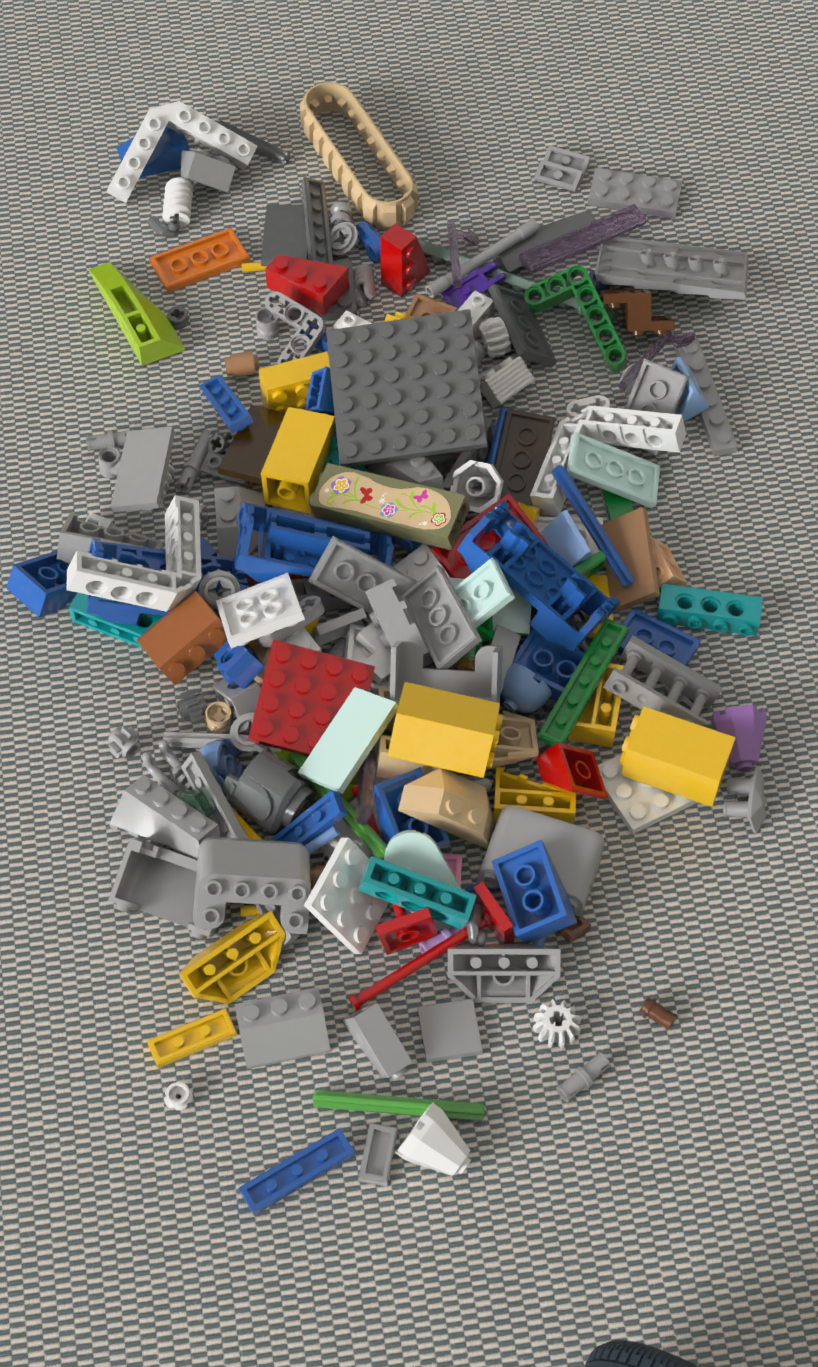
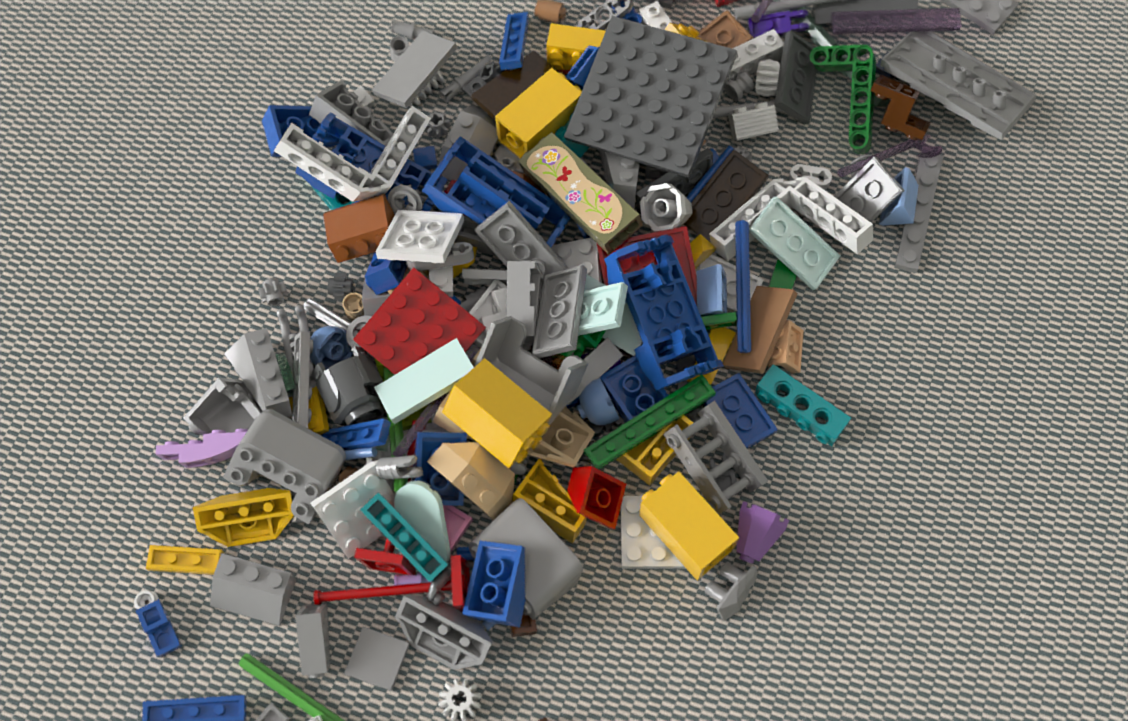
camera: 30 degrees right, 10 degrees up
(160, 914) = (214, 449): none -> lavender slope
(208, 1113) = (158, 628): none -> blue slope
(371, 831) = (398, 467): none -> light grey hinge

